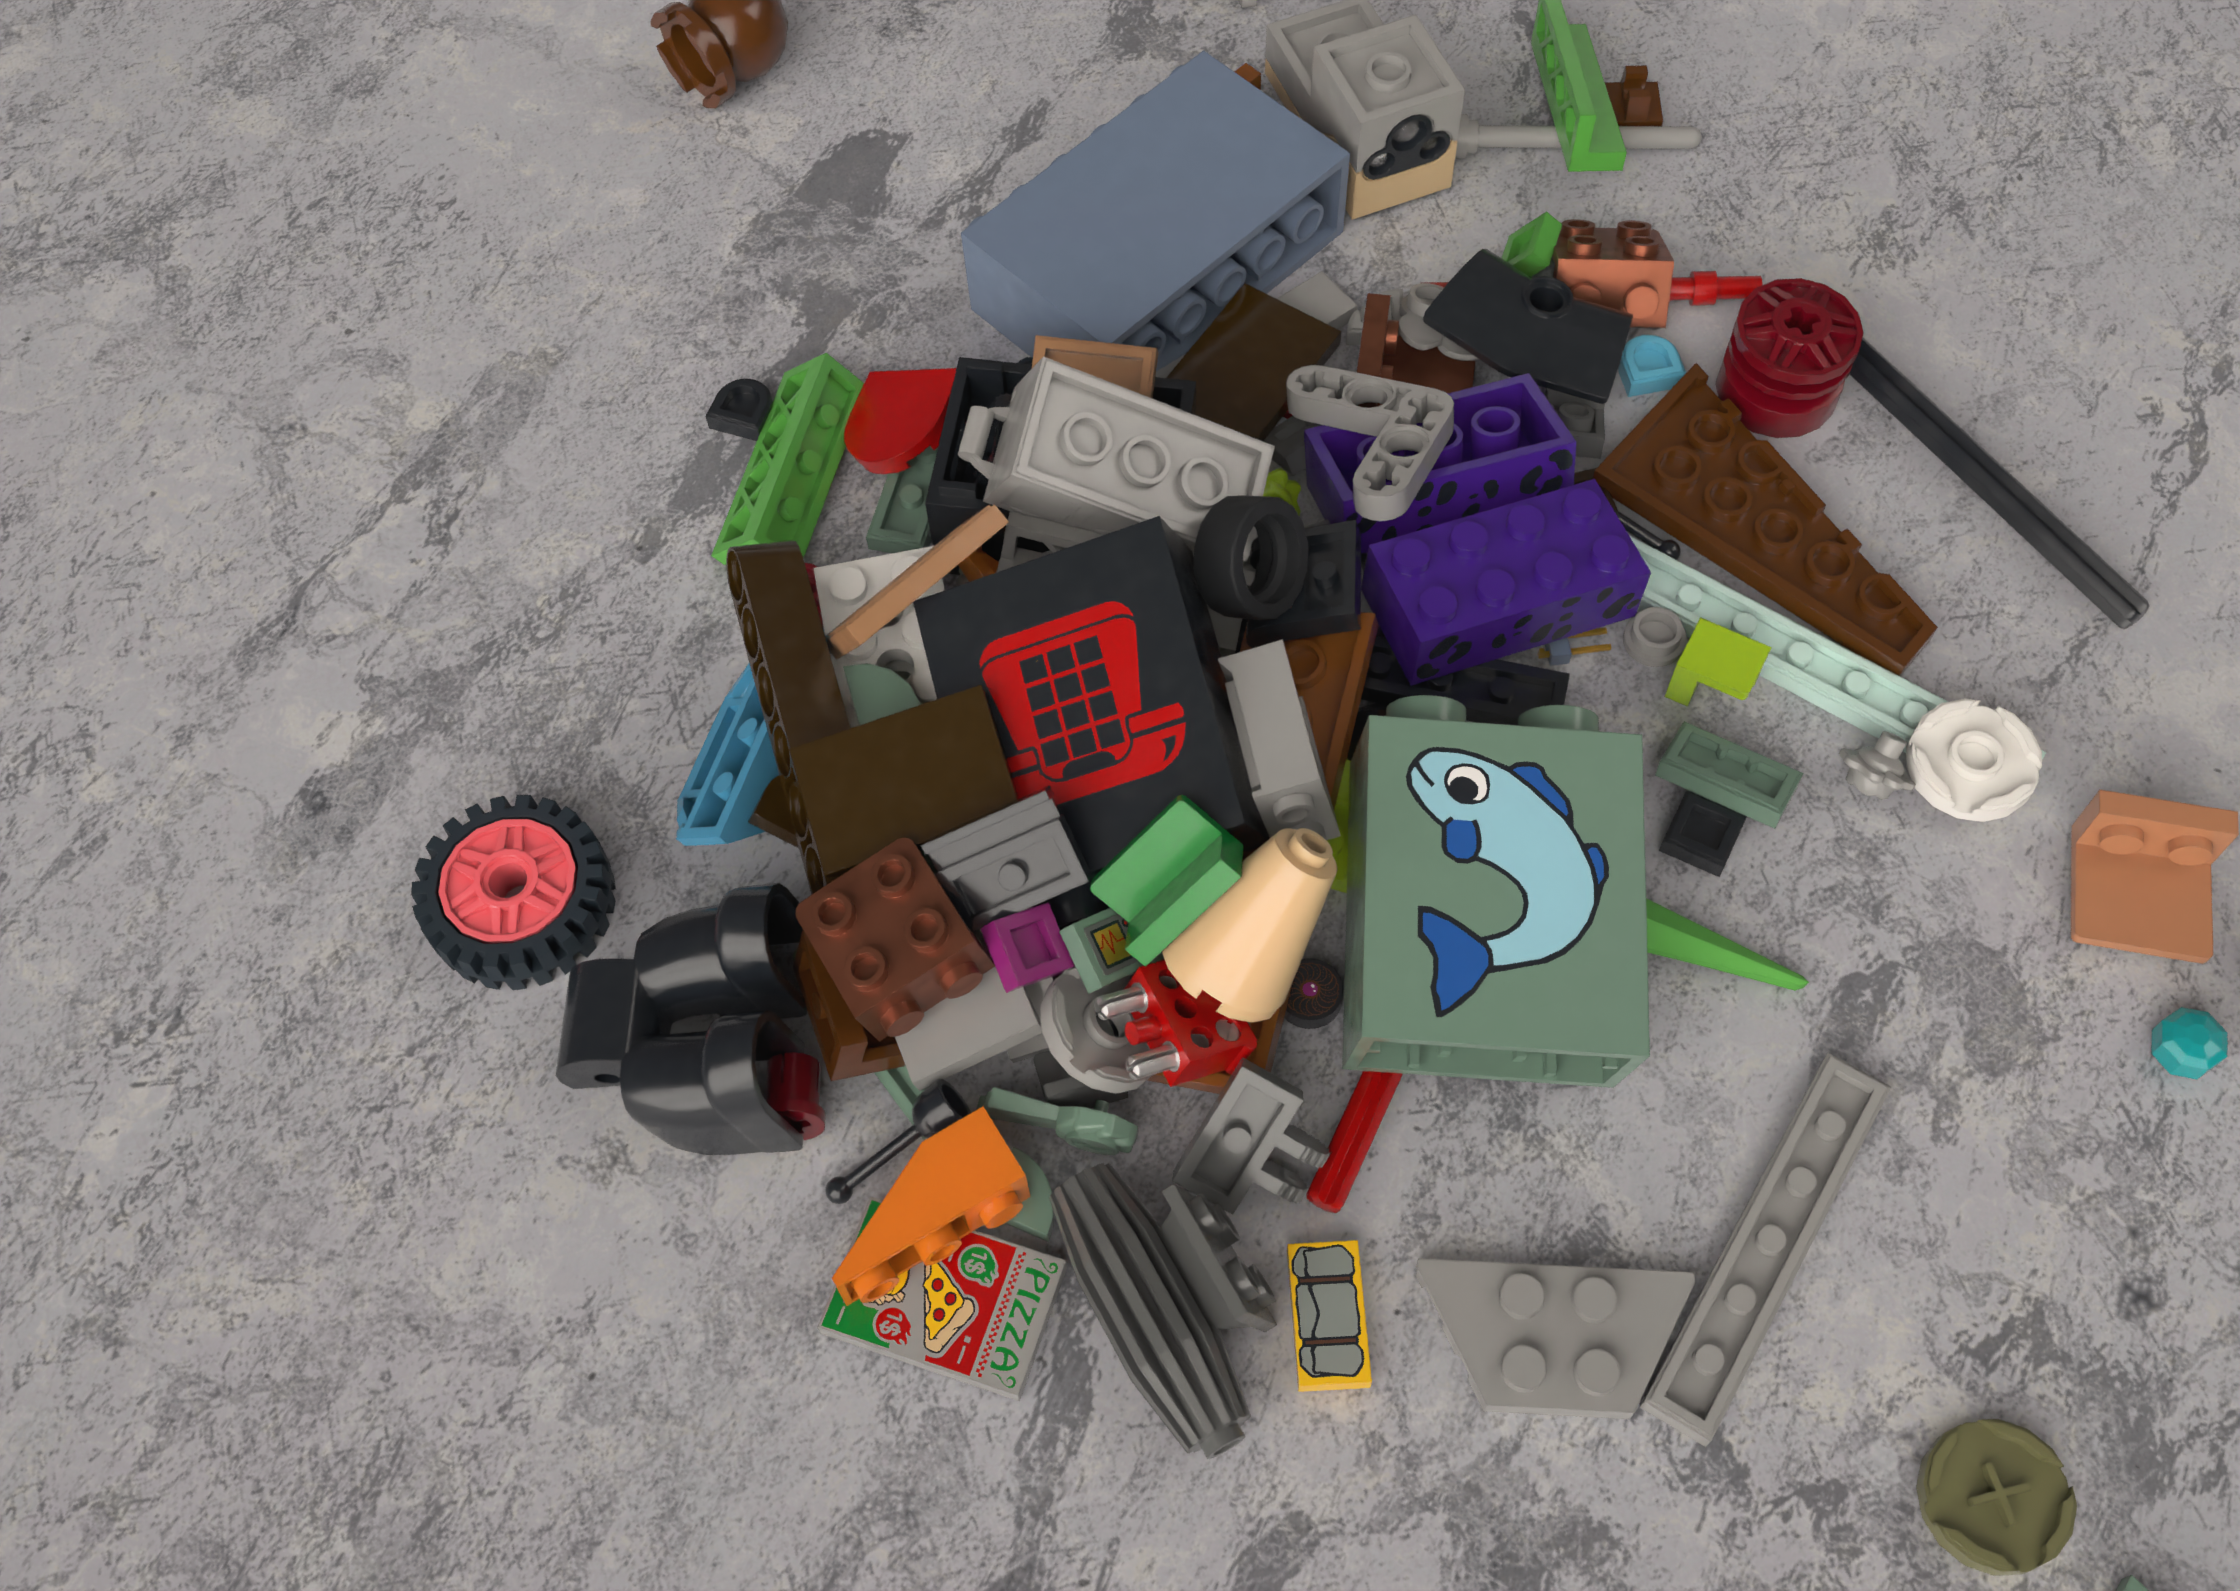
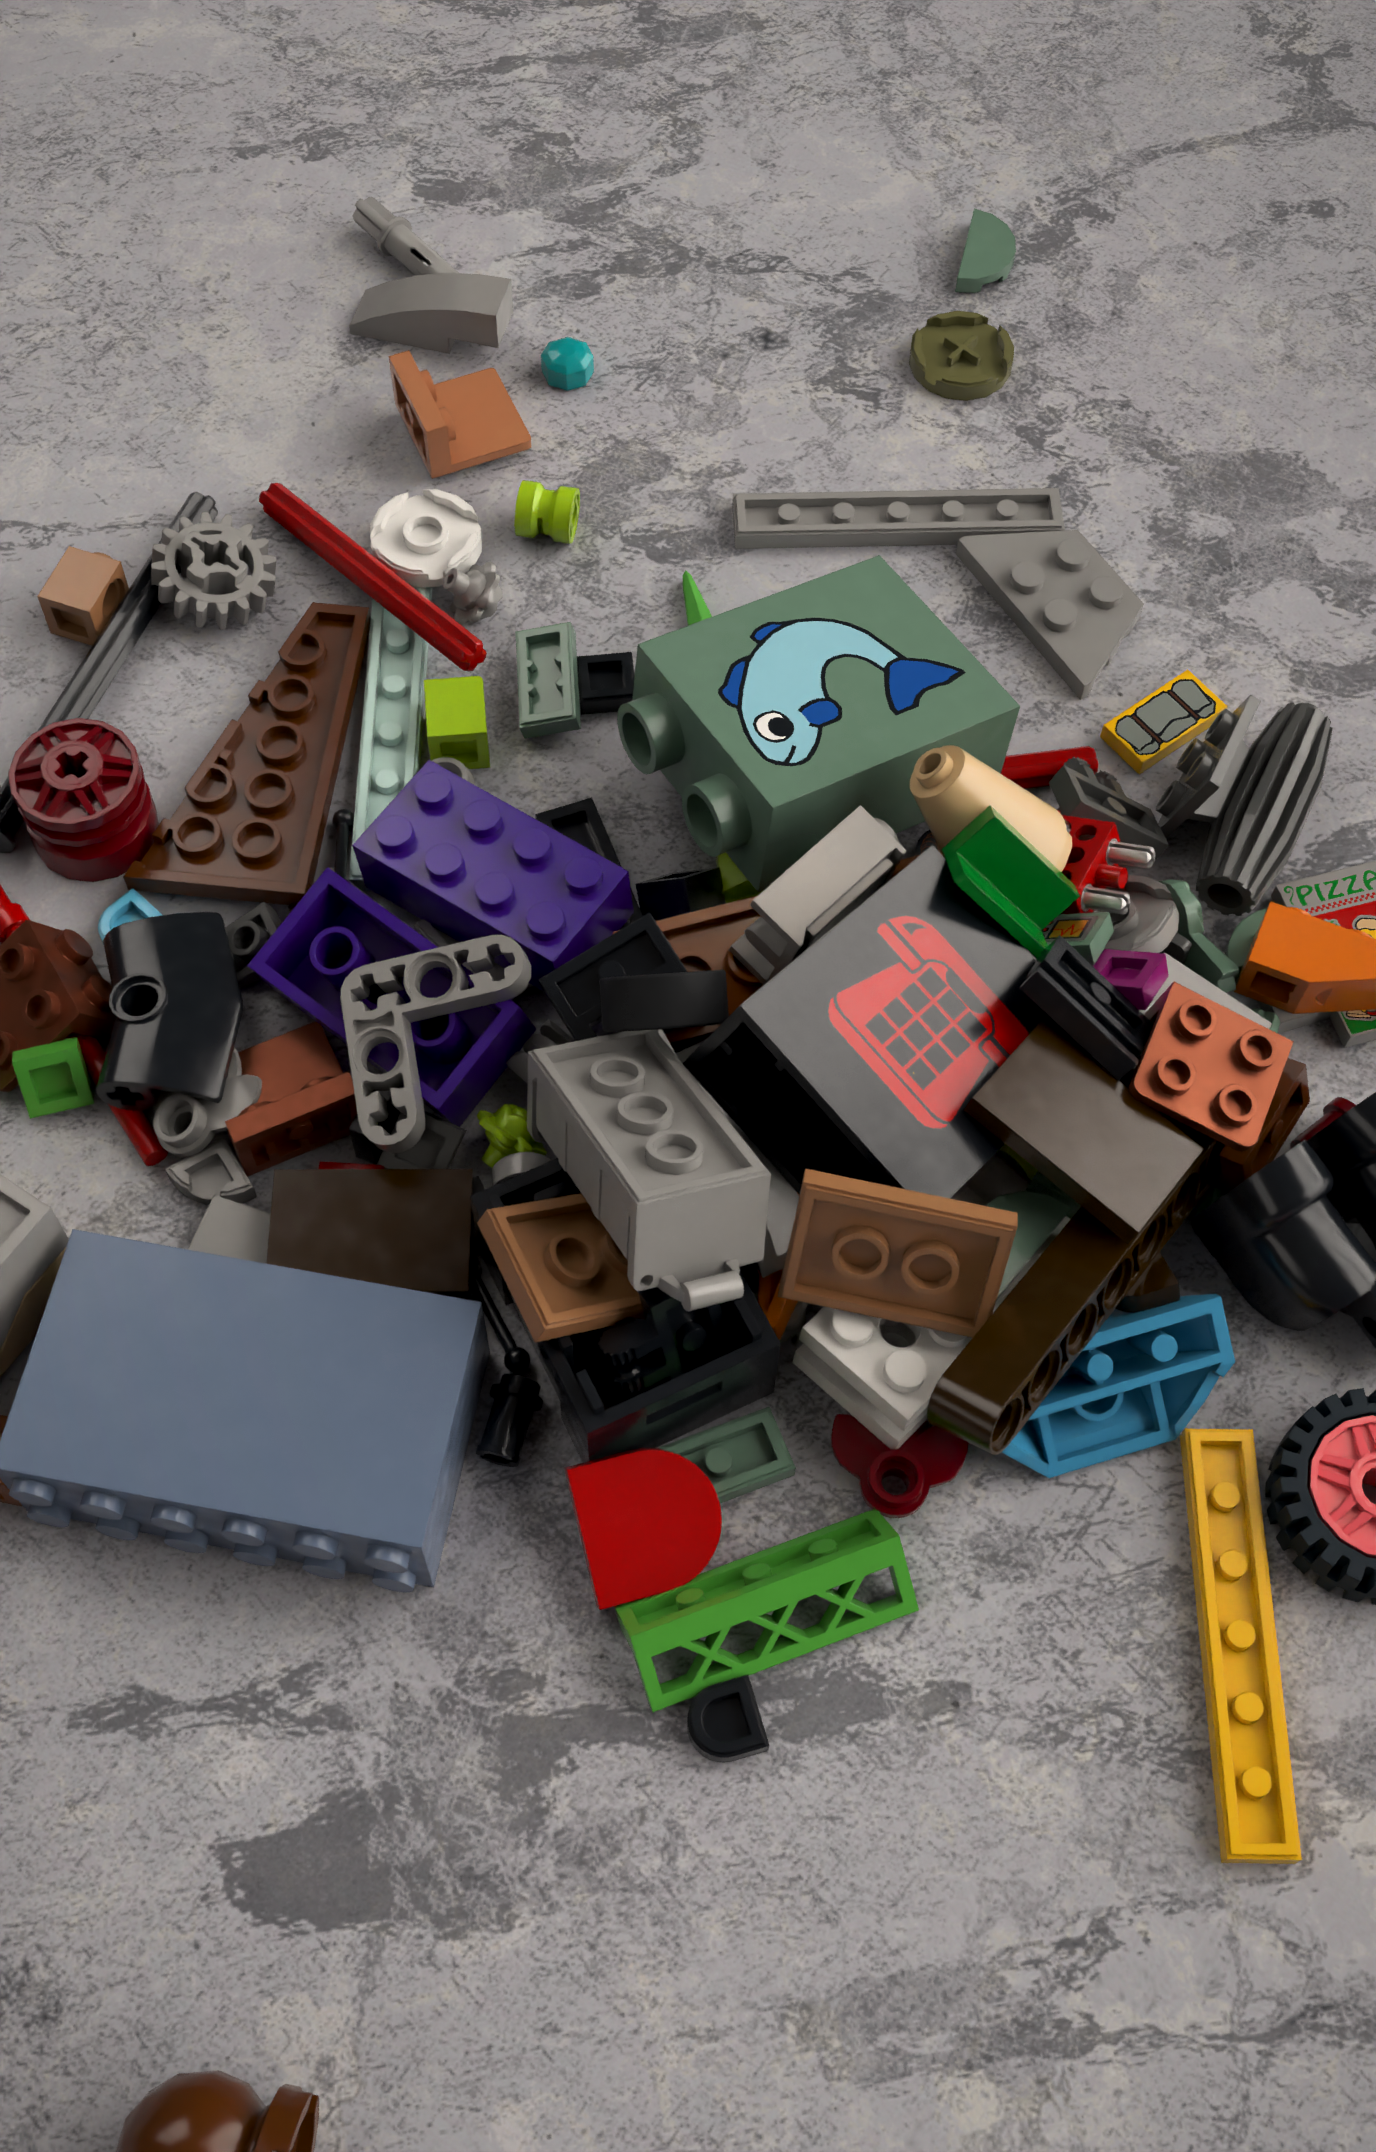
camera: 130 degrees left, 0 degrees up
(521, 740) = (1239, 1649): none -> yellow tile
(932, 1112) = (1274, 1004): black hinge -> none
(1943, 685) = (373, 577): none -> red axle
(1960, 882) = (547, 511): none -> lime wheel
(2018, 591) = (213, 570): none -> light grey gear
(2053, 462) = (82, 594): none -> medium nougat brick

